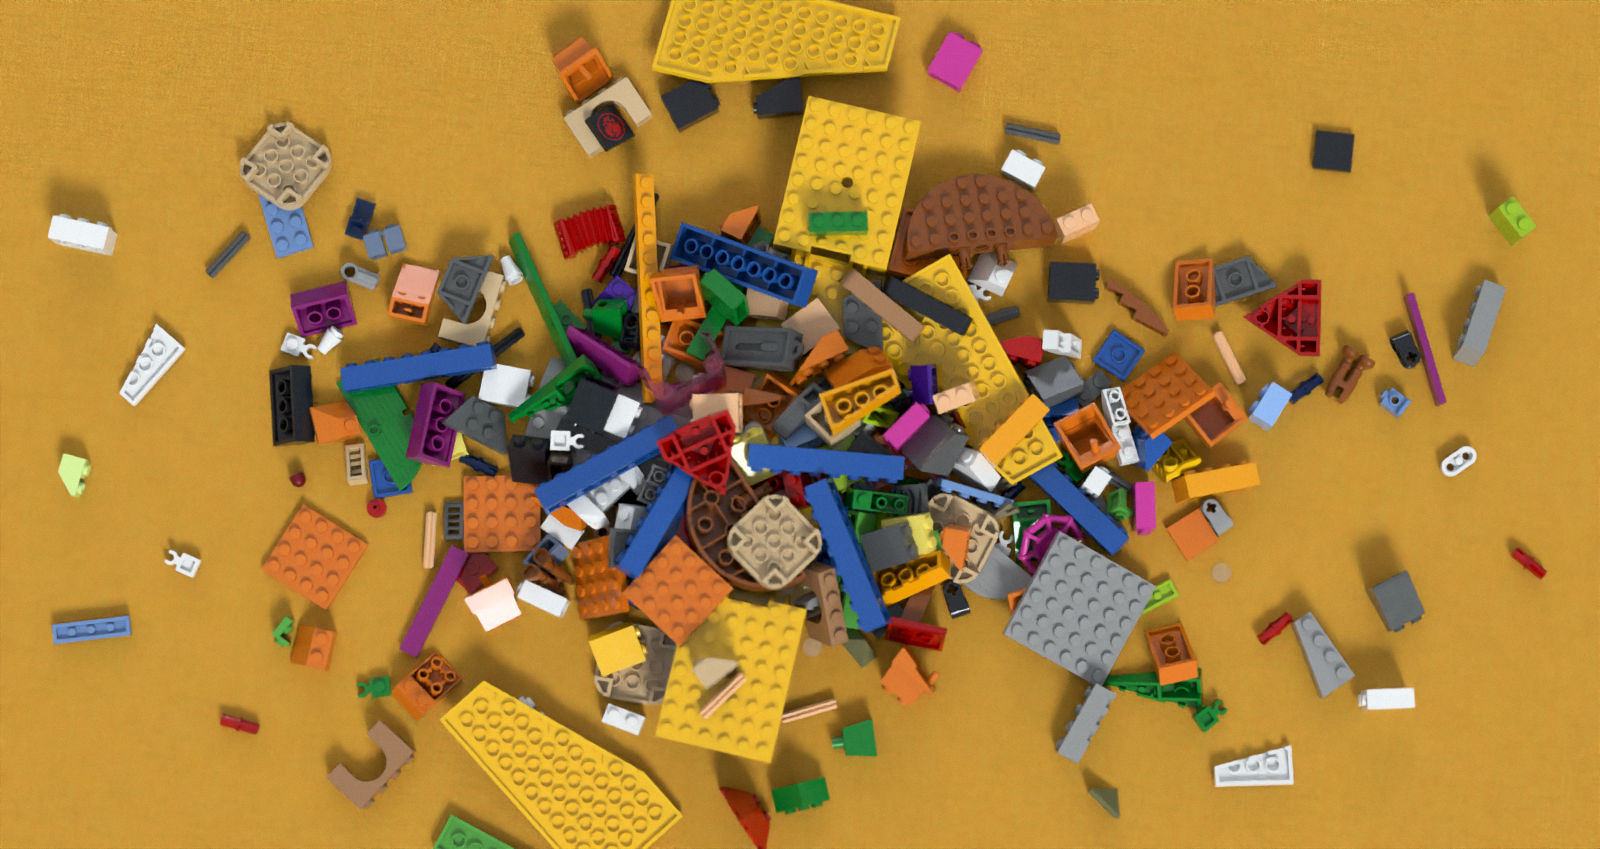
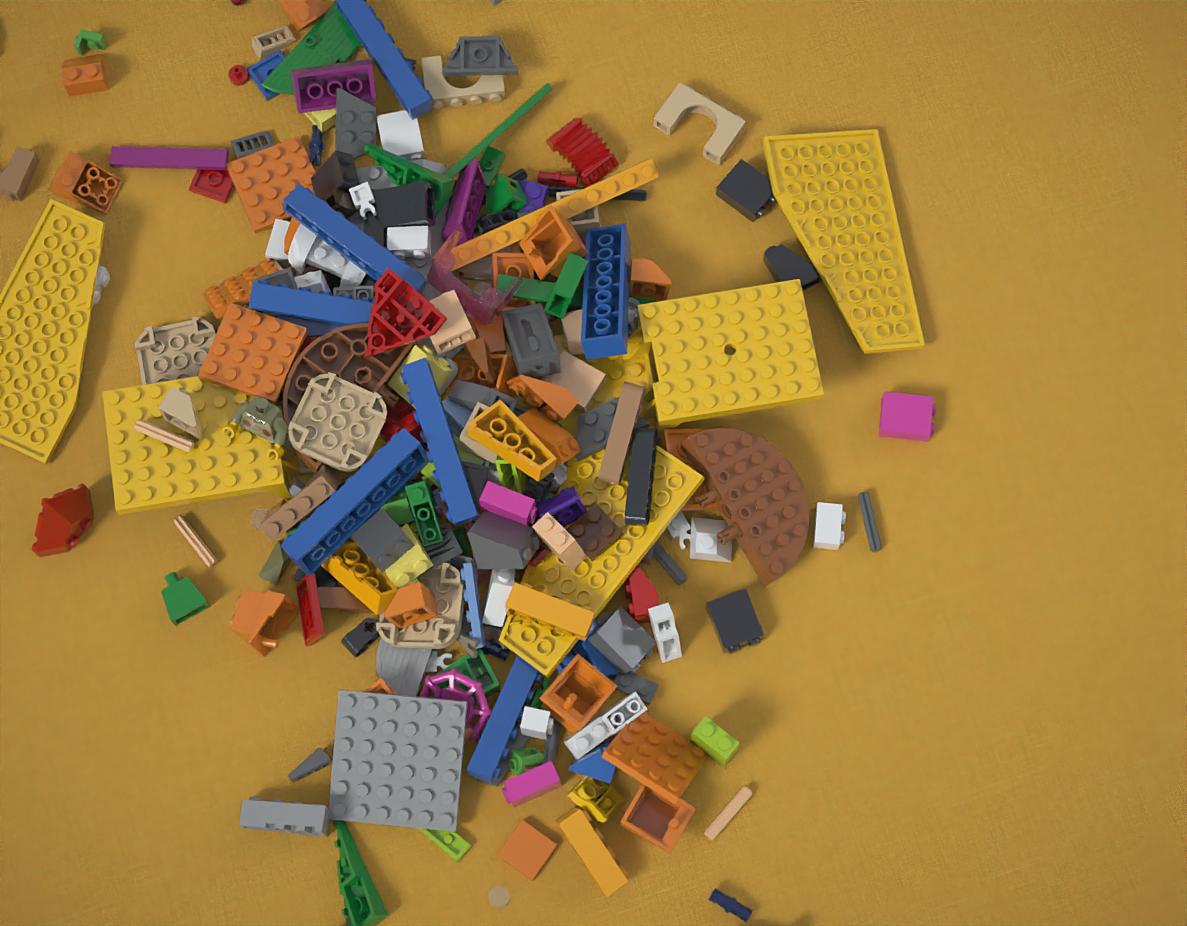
camera: 65 degrees right, 10 degrees down
(315, 557) = (171, 42): orange plate -> none
(378, 687) = (68, 141): green plate -> none
(413, 294) = (449, 21): orange slope -> none
(429, 542) = (226, 132): light nougat axle -> none
(494, 603) = (184, 204): piece -> none
(499, 348) = (430, 116): black axle -> none
(511, 271) = (512, 99): white cone -> none
(542, 598) = (206, 249): white brick -> none
(543, 558) = (240, 228): dark orange piece -> none
(557, 552) = (240, 236): sand blue piece -> none
(581, 69) = (732, 78): orange piece -> none
(609, 128) = (689, 127): tile -> none
(617, 648) = (184, 333): yellow brick -> none
(623, 719) = (119, 368): white brick -> none
(747, 605) = (263, 420): none -> olive torso
(800, 796) = (102, 561): green brick -> none
(838, 223) = (682, 352): green brick -> none
(956, 365) = (594, 532): none -> reddish brown plate
(1047, 678) = (313, 763): none -> dark grey slope
(1076, 223) = (795, 596): light nougat brick -> none
(1107, 799) = (215, 873): olive slope -> none
(1118, 355) = (681, 699): blue tile -> none
(1143, 314) = (735, 701): dark orange slope -> none
(1171, 342) = (714, 741): none -> lime brick
(1171, 654) = (390, 875): orange slope -> none
(1194, 290) = (781, 746): orange slope -> none
(1218, 520) = (553, 870): light grey piece -> none
(1239, 280) = (810, 786): dark grey wing -> none
(1270, 405) = (693, 871): light blue brick -> none
(1293, 317) = (798, 861): red wedge -> none
(1333, 151) = (994, 833): black tile -> none

